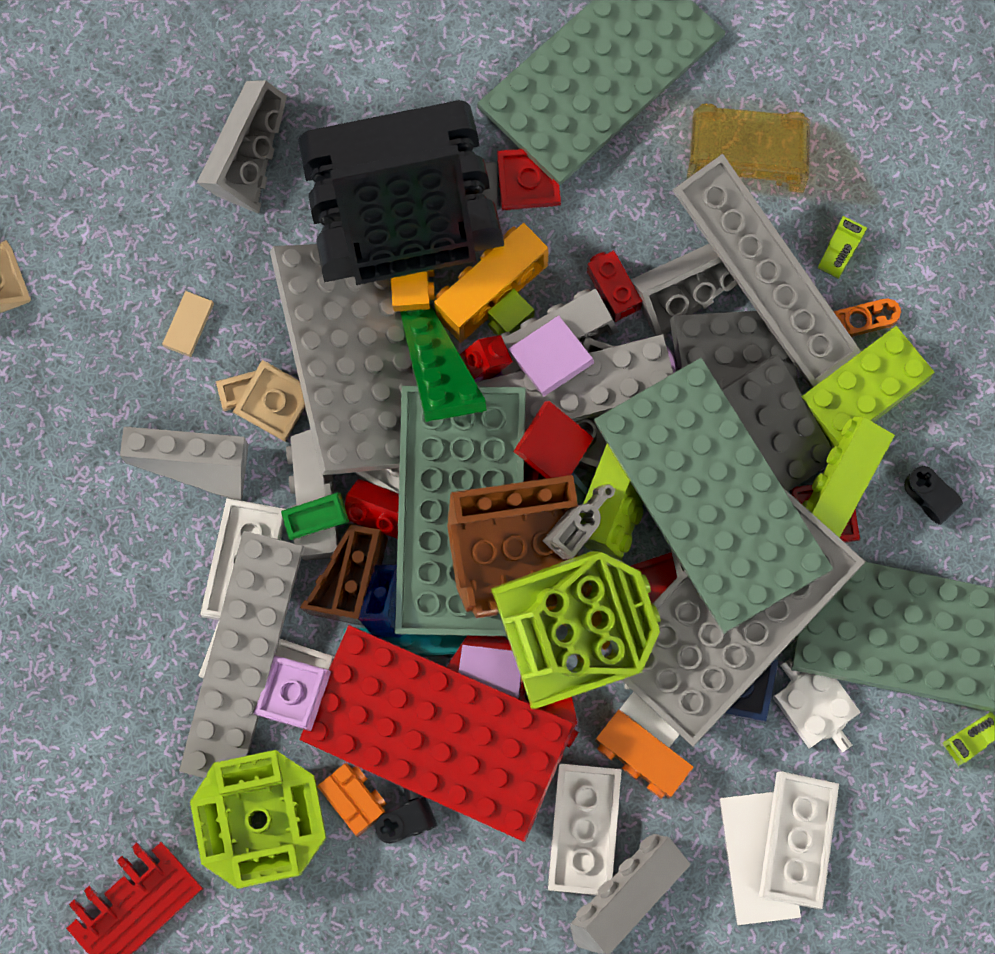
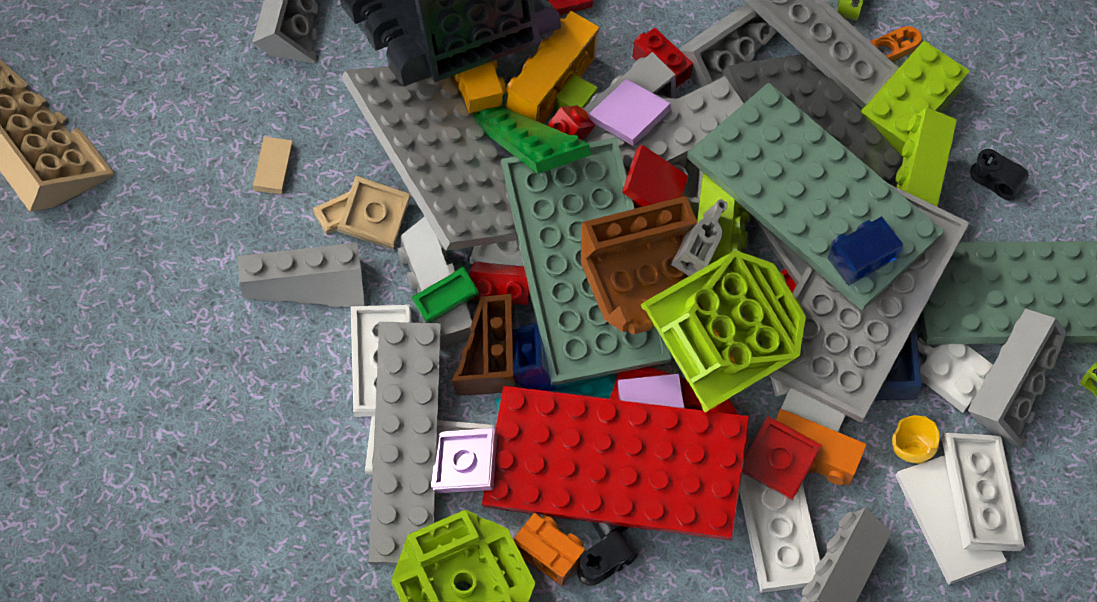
camera: 25 degrees left, 15 degrees down
(601, 762) = (780, 458): none -> red tile
(737, 577) = (864, 250): none -> clear blue brick
(748, 770) = (916, 439): none -> yellow hair
(870, 732) = (1018, 376): none -> light grey wedge

